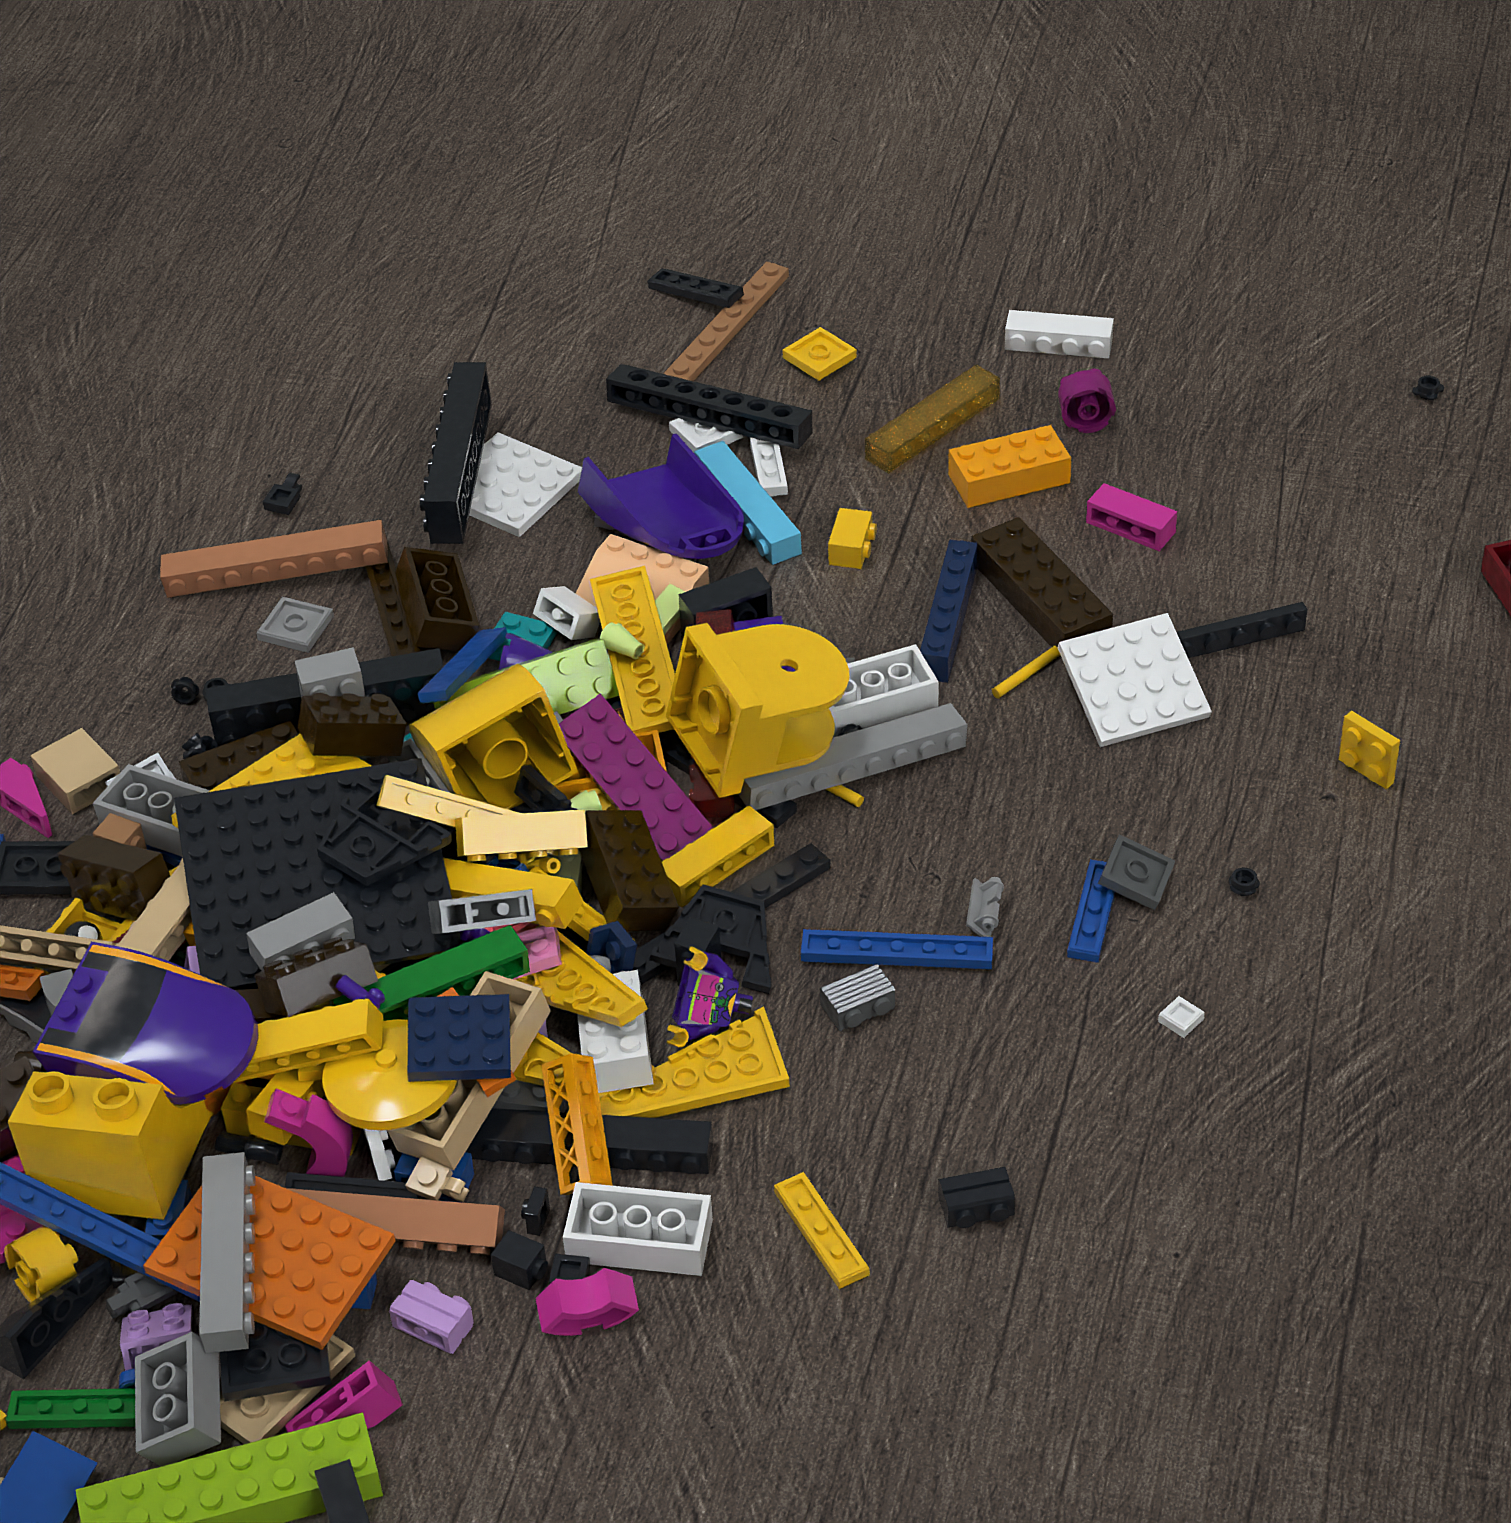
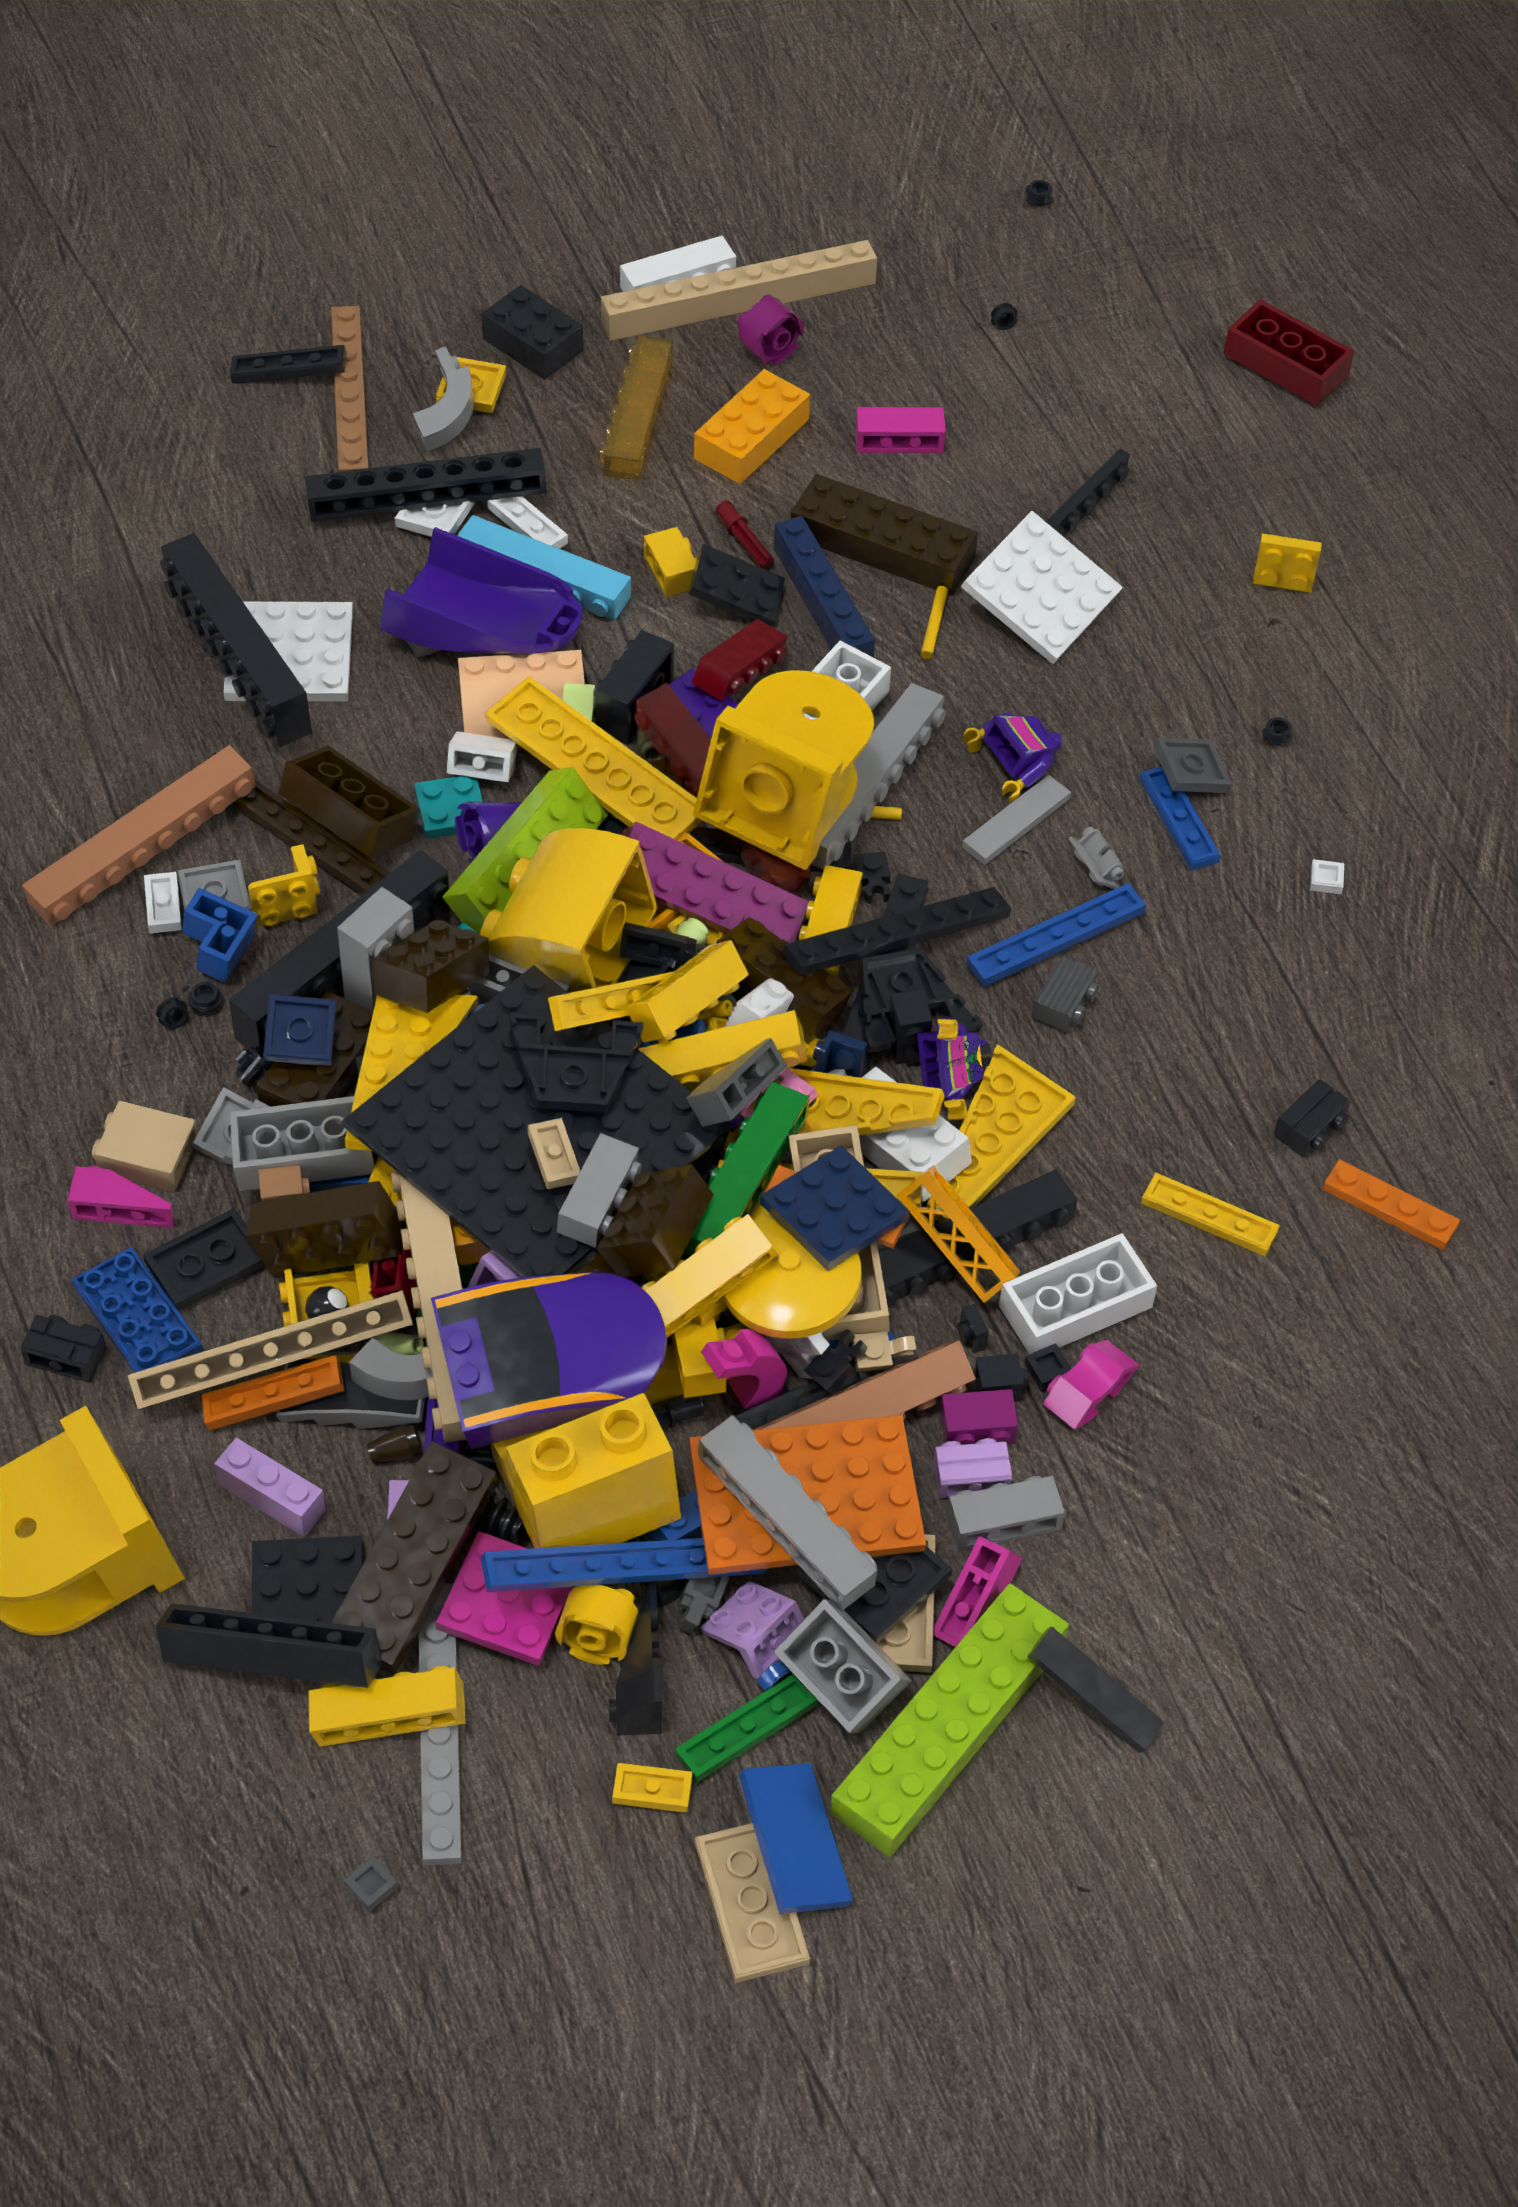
camera: 40 degrees left, 10 degrees up
(233, 733) = (299, 1030): none -> dark blue plate
(250, 613) = (162, 902): none -> white plate
(264, 649) = (222, 928): none -> blue brick
(285, 496) = (76, 766): black plate -> none
(295, 890) = (554, 1153): none -> tan plate
(325, 637) = (287, 895): none -> yellow bracket
(354, 991) = (715, 1215): dark purple arm -> none
(386, 1170) = (833, 1366): none -> black plate
(427, 1363) = (1005, 1512): none -> light grey brick
(462, 665) = (458, 855): blue tile -> none
(476, 1279) = (979, 1416): none -> magenta brick
(589, 875) = (764, 1001): none -> white brick
(620, 640) = (586, 760): yellowish green cone -> none
(756, 879) = (896, 931): none -> black plate
(782, 363) = (451, 414): none -> light grey arch
(792, 834) = (874, 875): none -> black plate
(840, 623) = (740, 660): none -> dark red brick
(882, 575) = (736, 585): none -> black plate
(900, 333) = (532, 332): none -> black brick
(930, 537) = (738, 526): none -> dark red axle
(951, 848) = (1016, 819): none -> light grey tile
(986, 1305) = (1391, 1204): none -> orange plate
(999, 794) = (1020, 745): none -> dark purple torso
(1124, 367) = (737, 289): none -> tan brick
(1306, 473) = (1004, 316): none -> black plate

